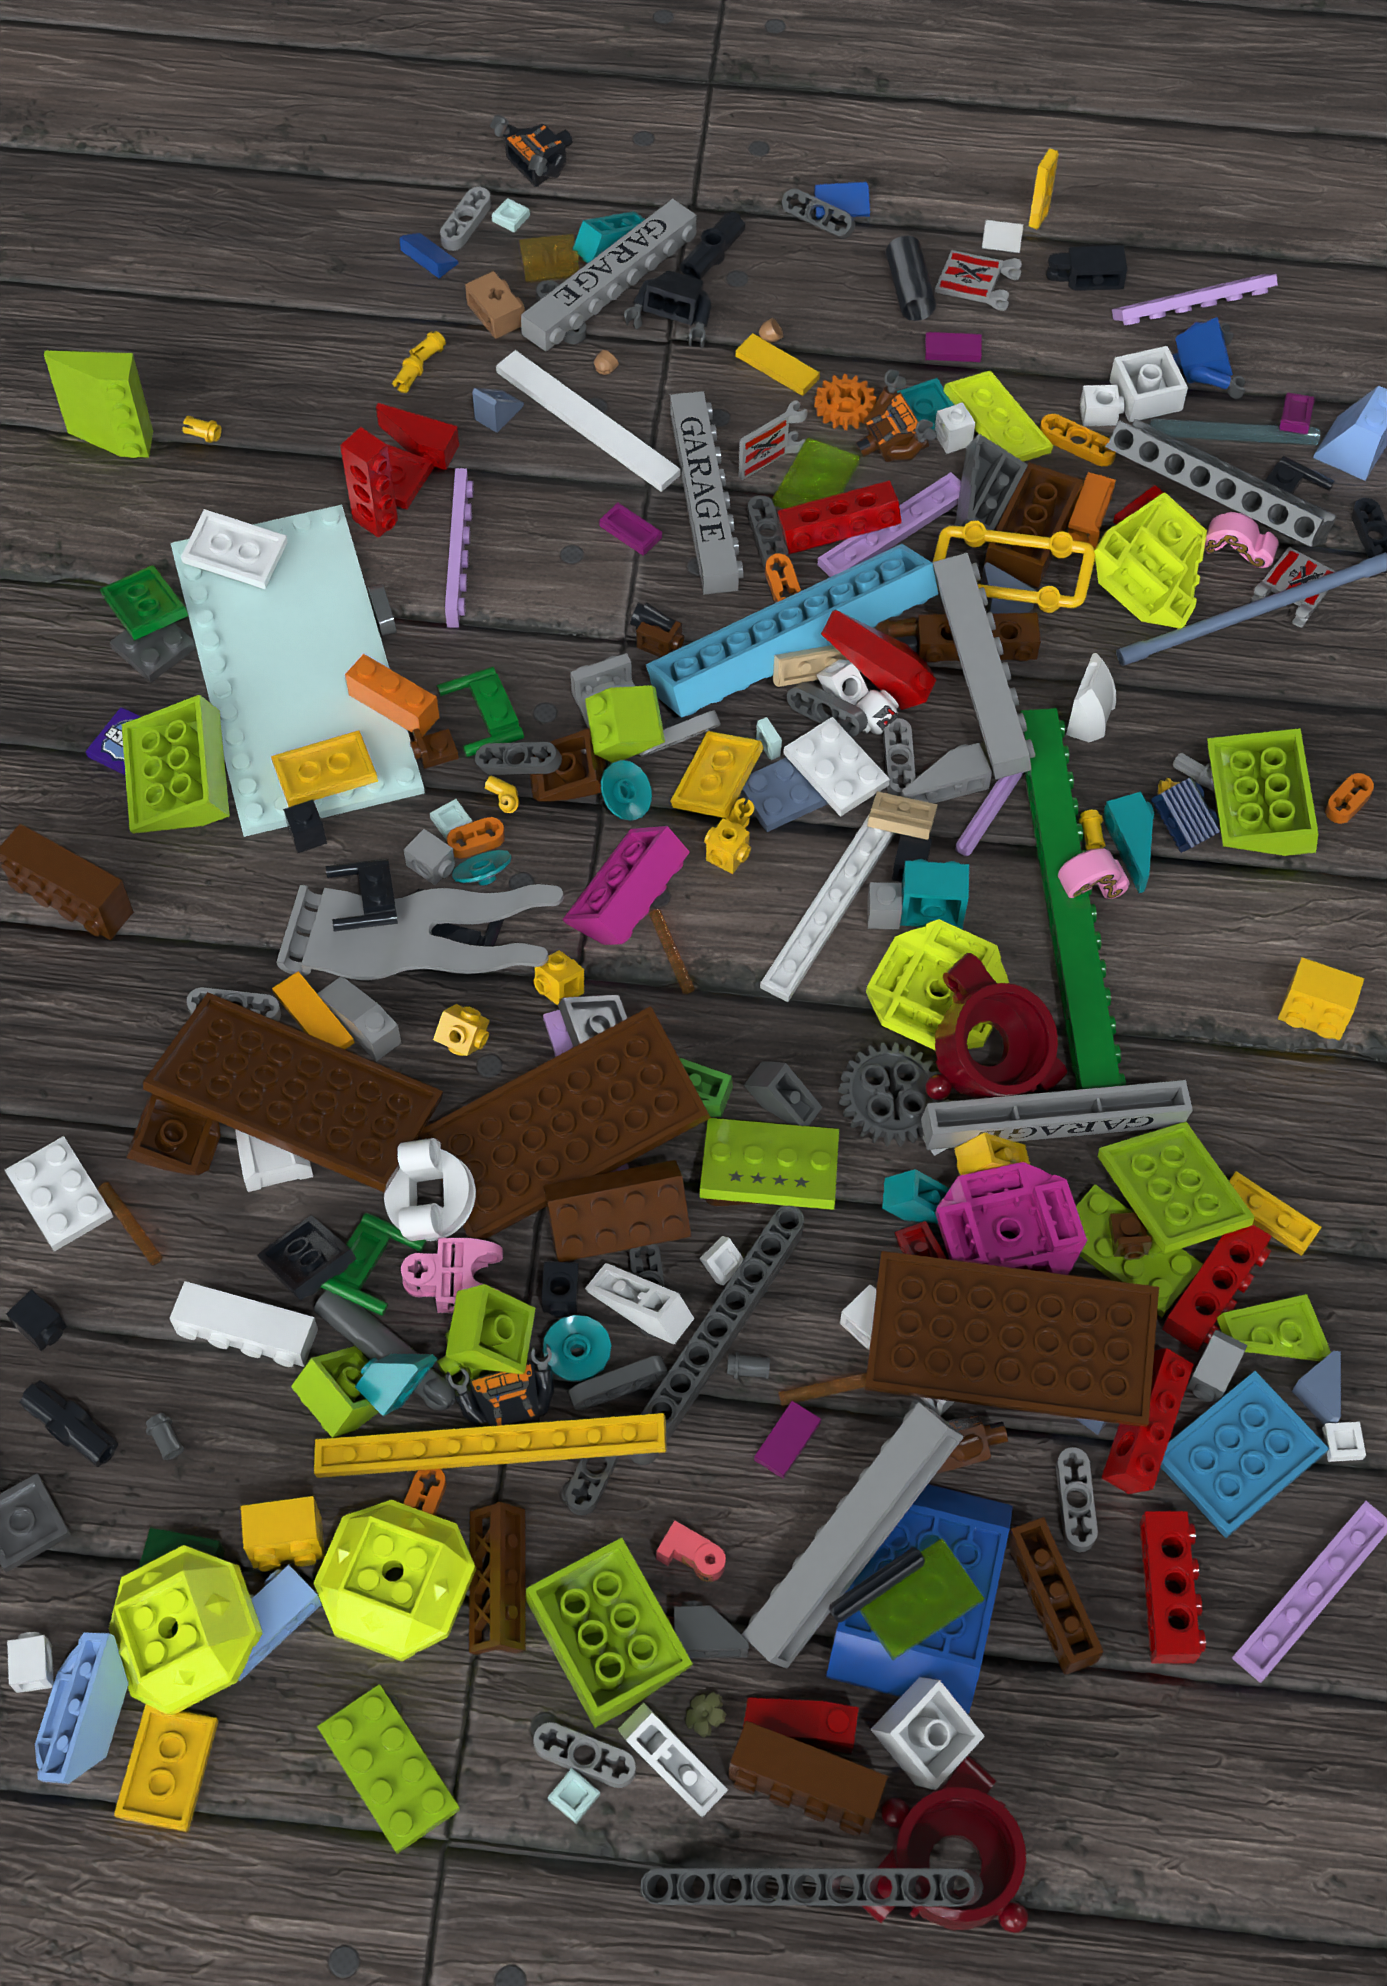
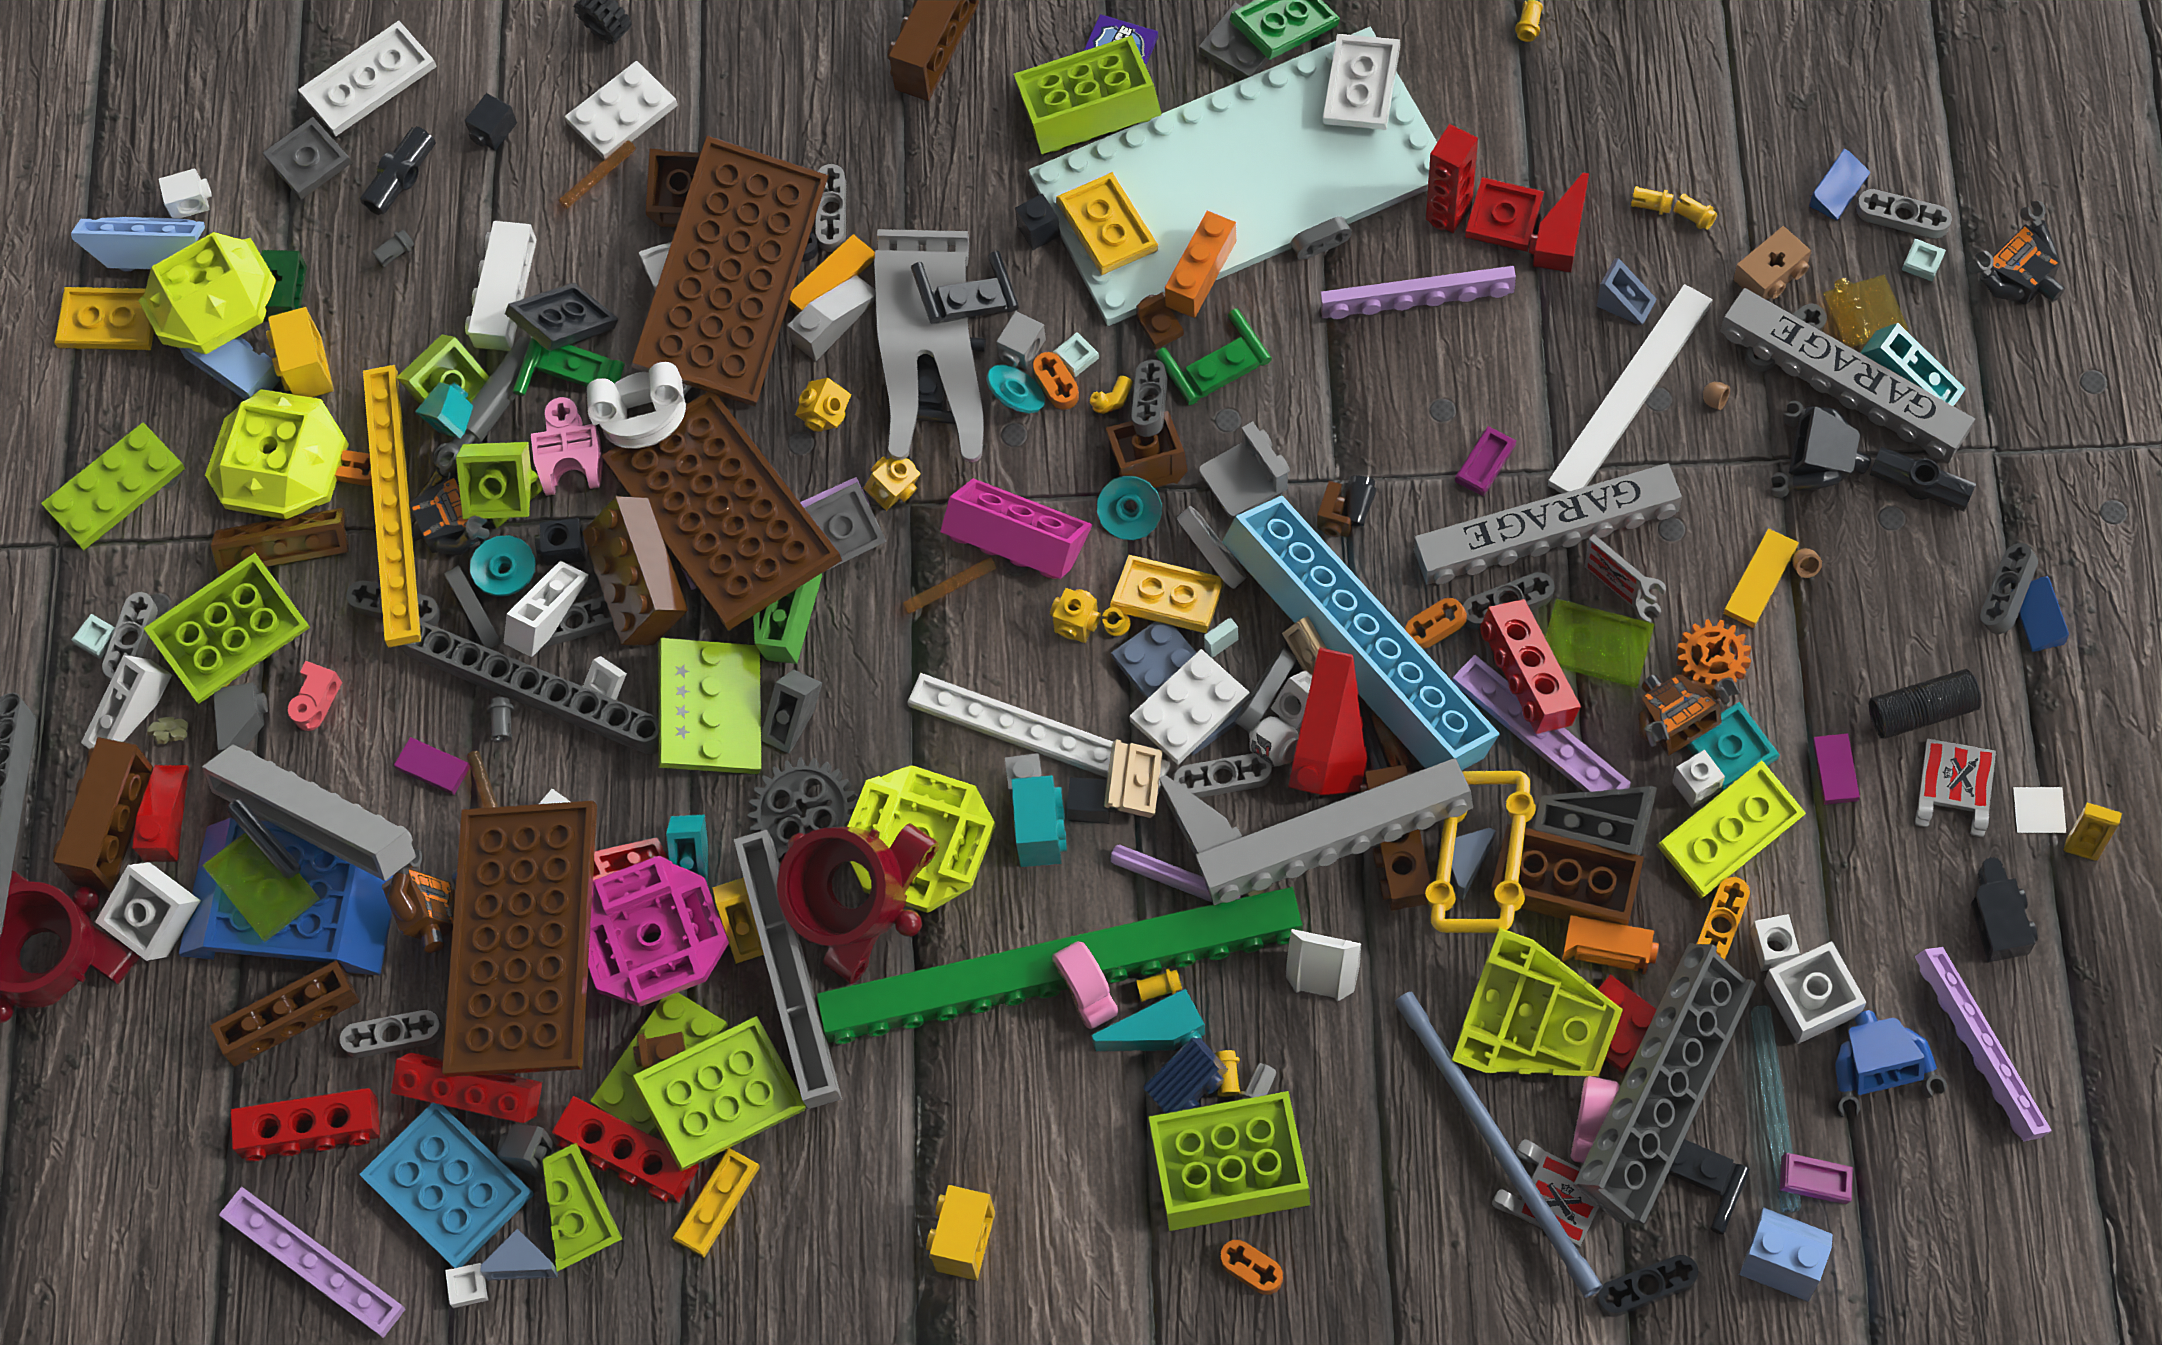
camera: 90 degrees right, 5 degrees up
(624, 721) = (1199, 483): lime slope -> none

